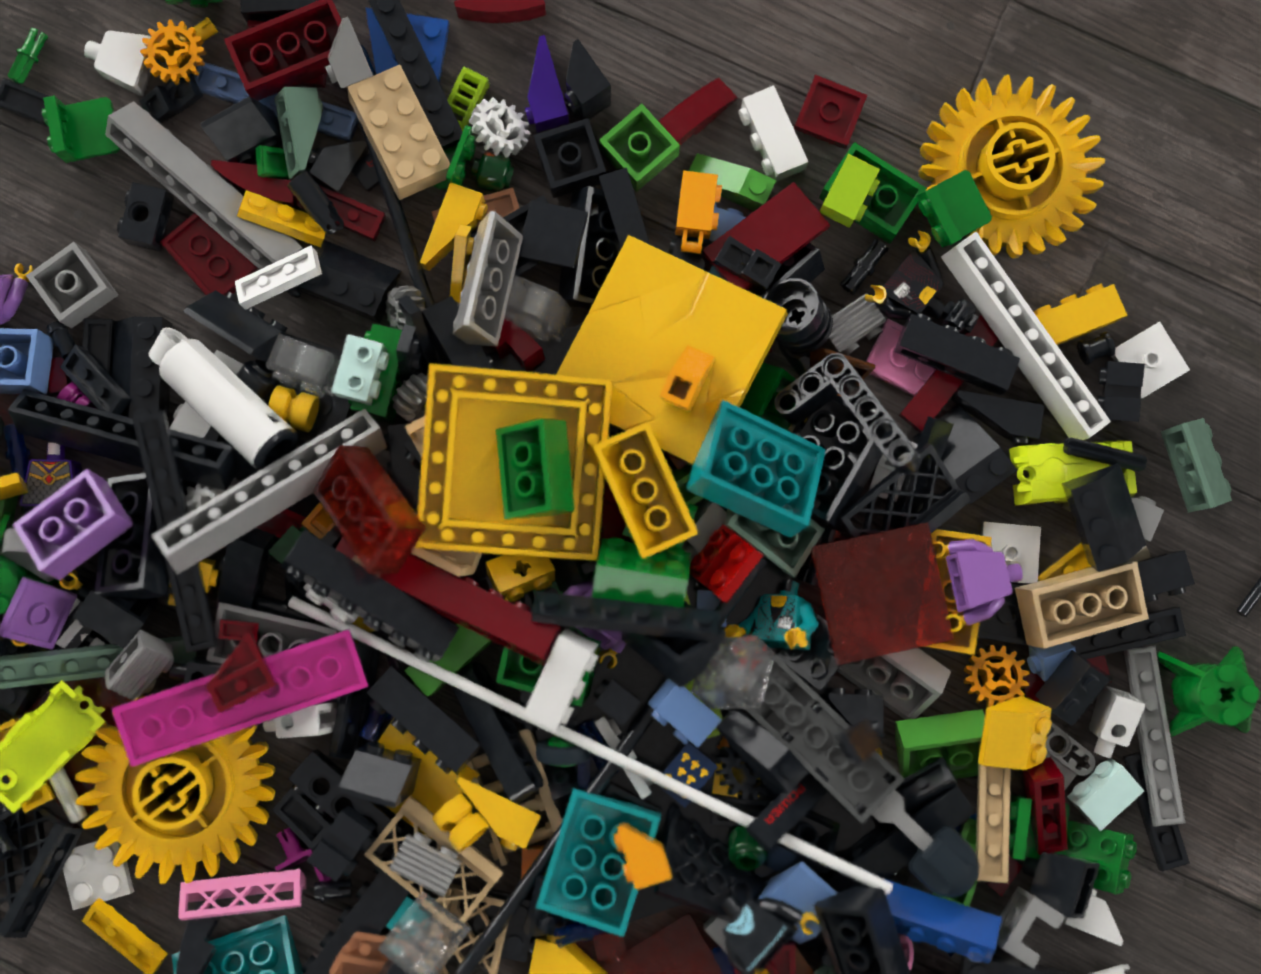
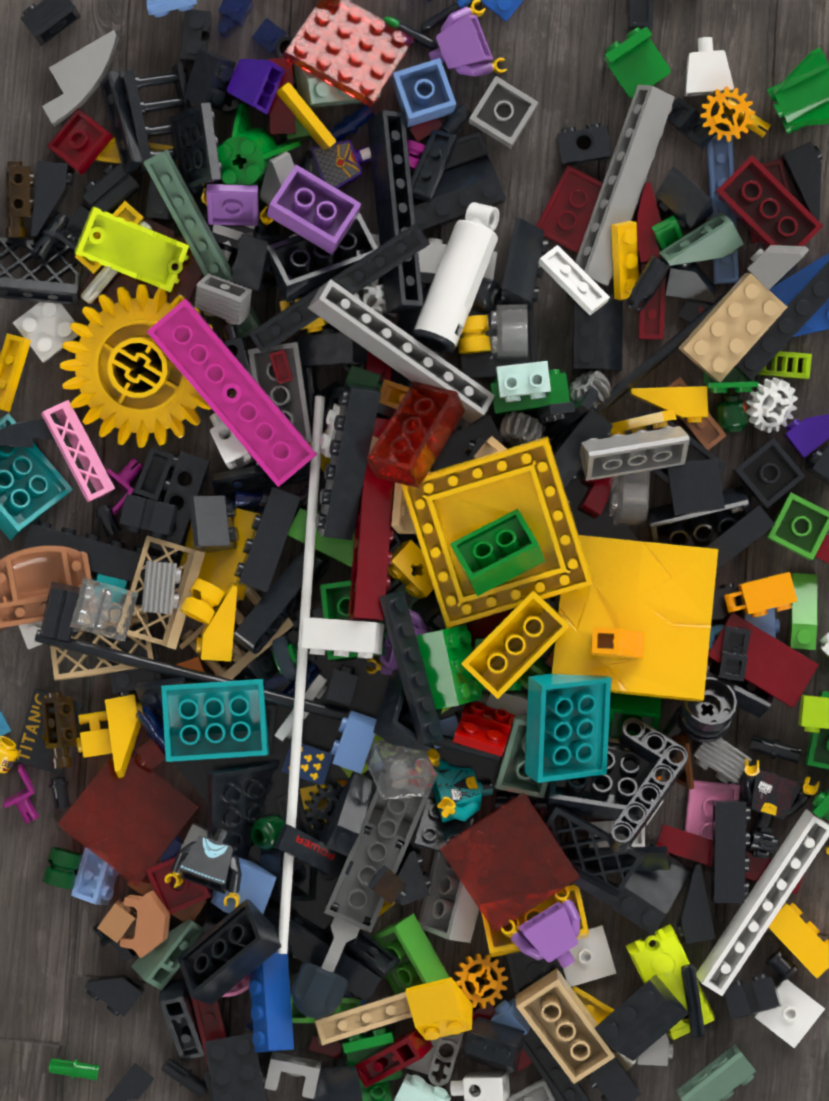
camera: 75 degrees right, 5 degrees up
(241, 676) = (248, 388): dark red wing -> none
(644, 856) = (234, 754): light orange slope -> none

